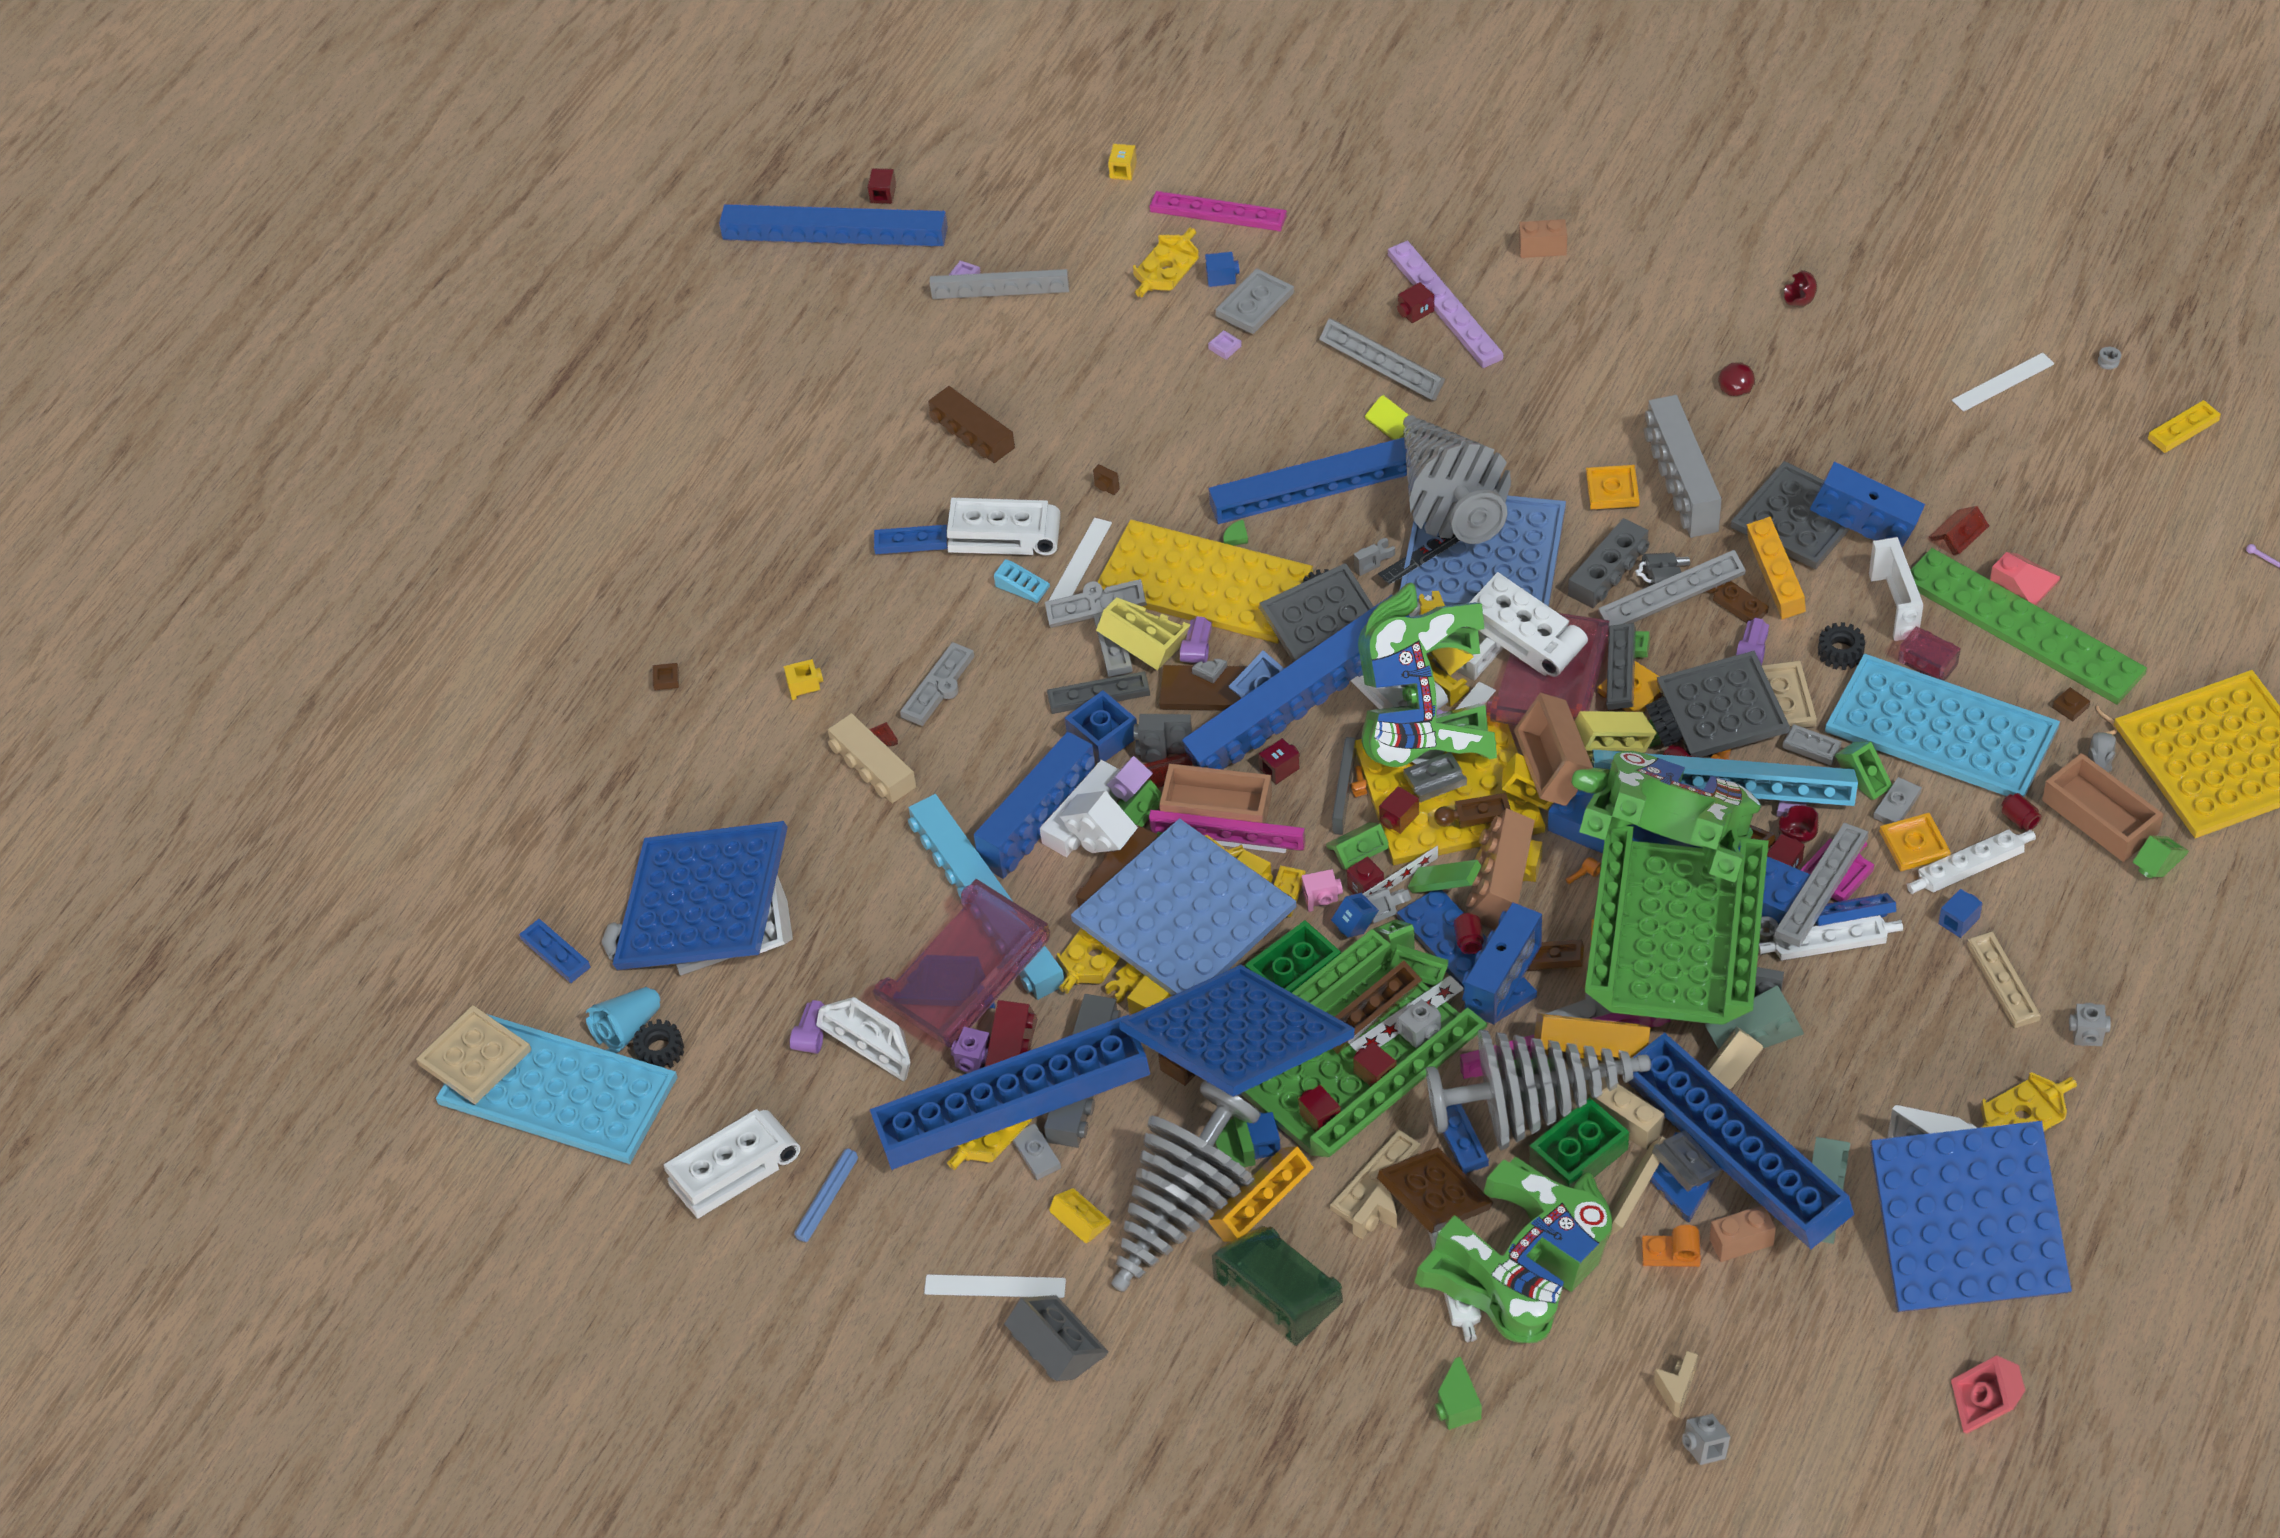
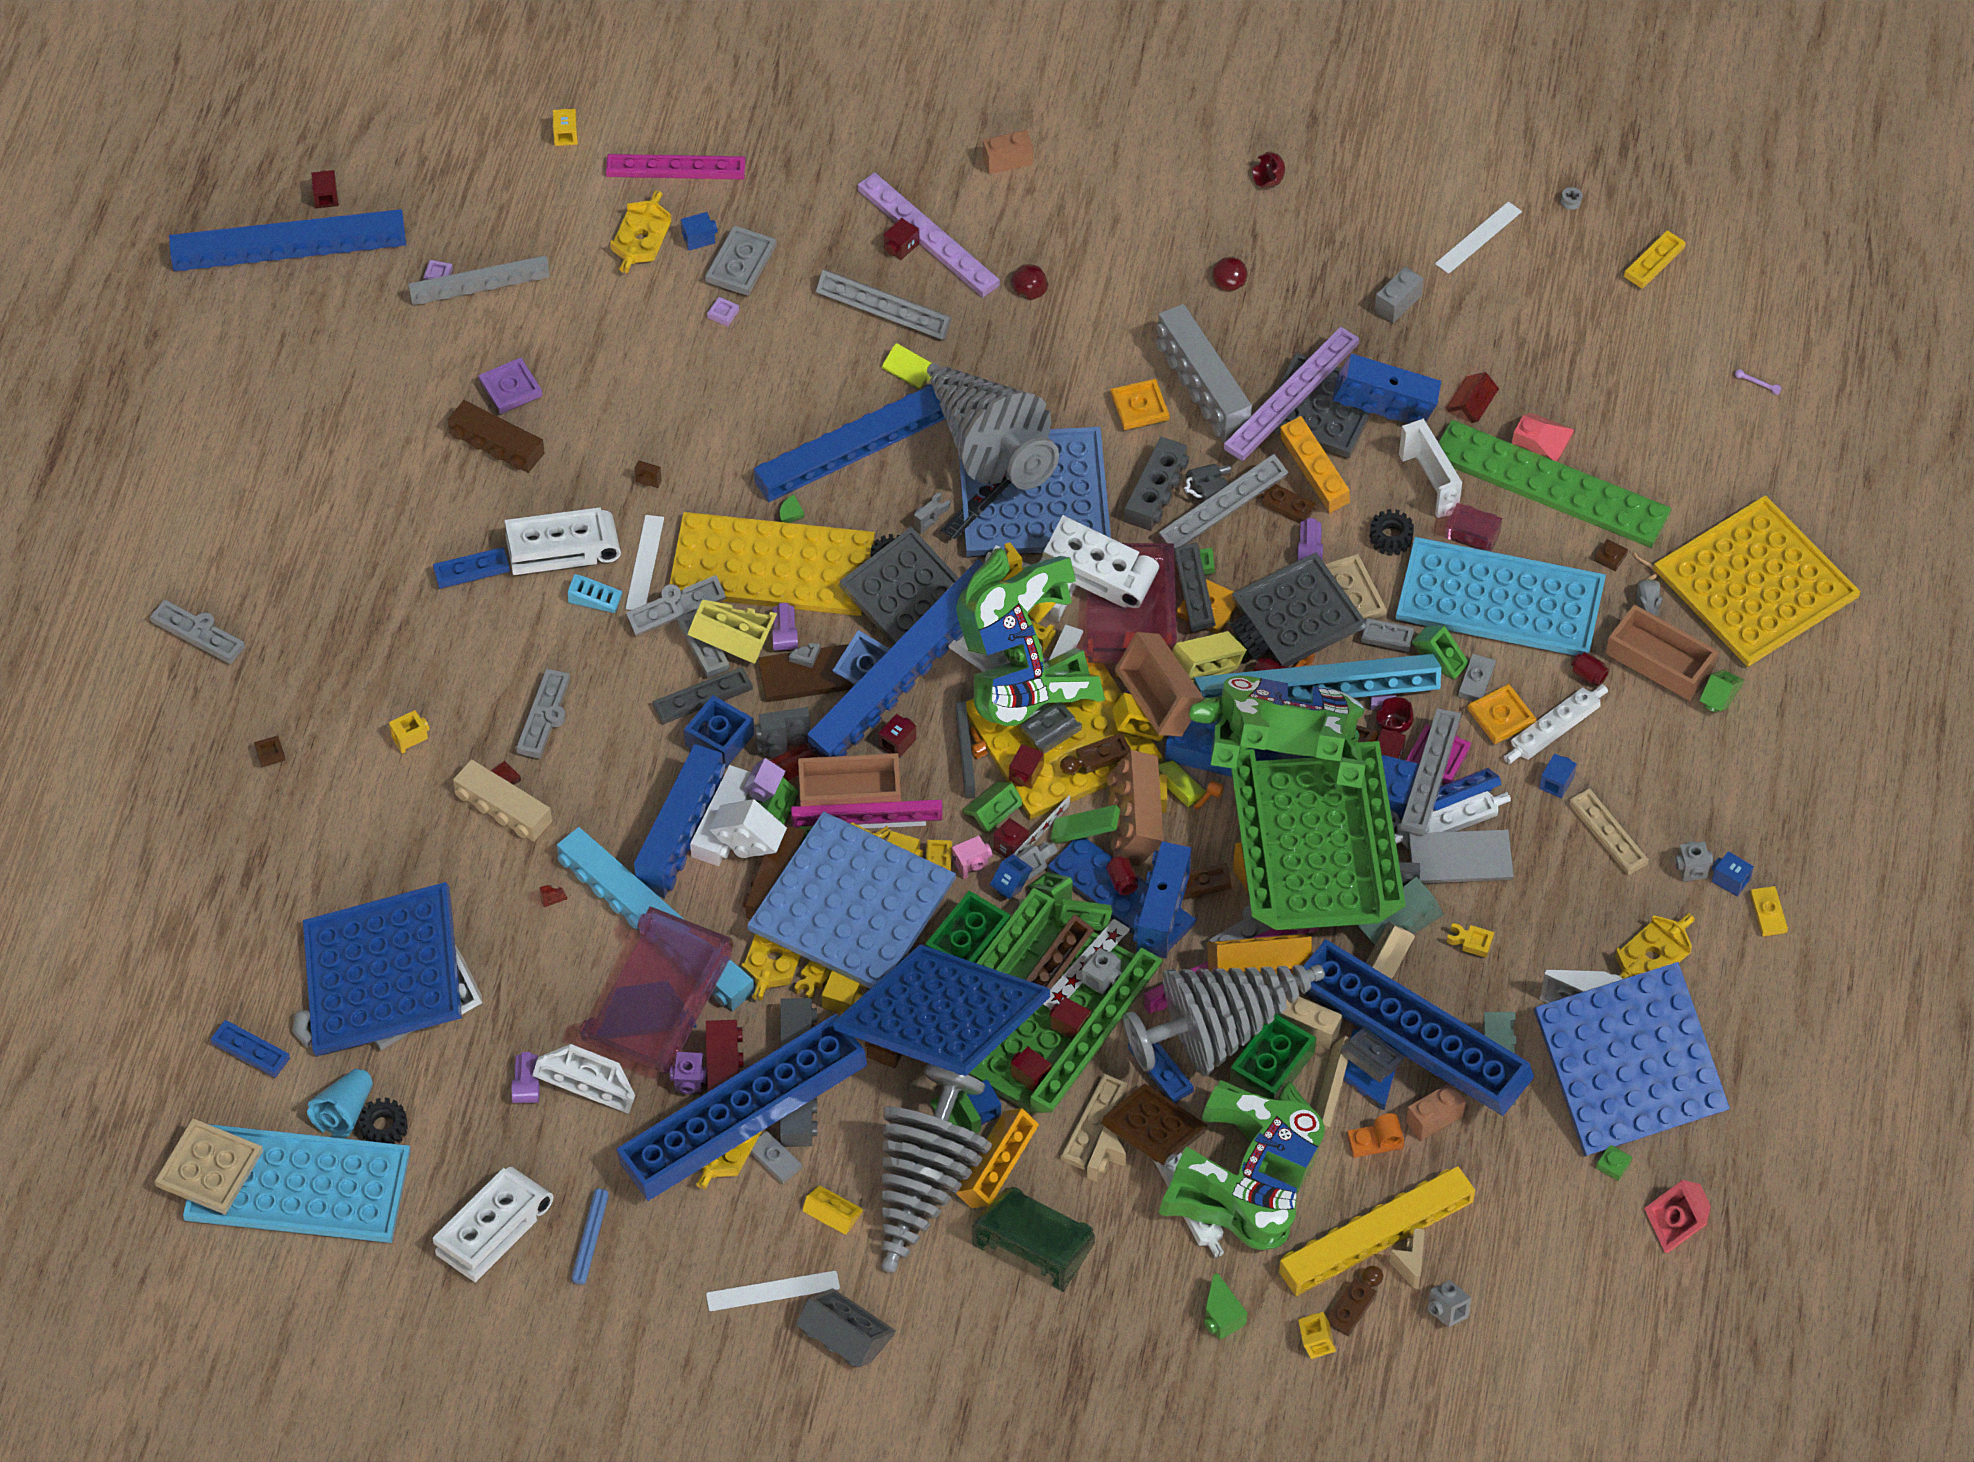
camera: 20 degrees left, 5 degrees up
(636, 557) = (198, 630): none -> light grey hinge
(892, 856) = (551, 895): none -> clear red tile
(999, 381) = (510, 385): none -> medium lavender plate
(1532, 358) = (1029, 281): none -> dark red hair
(1552, 1444) = (1316, 1335): none -> yellow brick
(1557, 854) = (1181, 783): none -> neon yellow slope
(1605, 1417) = (1355, 1301): none -> reddish brown plate
(1646, 1346) = (1376, 1230): none -> yellow brick
(1767, 498) = (1291, 394): none -> lavender plate
(1828, 1065) = (1474, 940): none -> yellow plate
(1836, 976) = (1462, 856): none -> light grey tile
(1905, 422) = (1399, 295): none -> light grey brick
(1928, 1324) = (1614, 1162): none -> bright green plate
(2130, 1044) = (1732, 873): none -> blue brick
(2162, 1091) = (1768, 911): none -> yellow plate

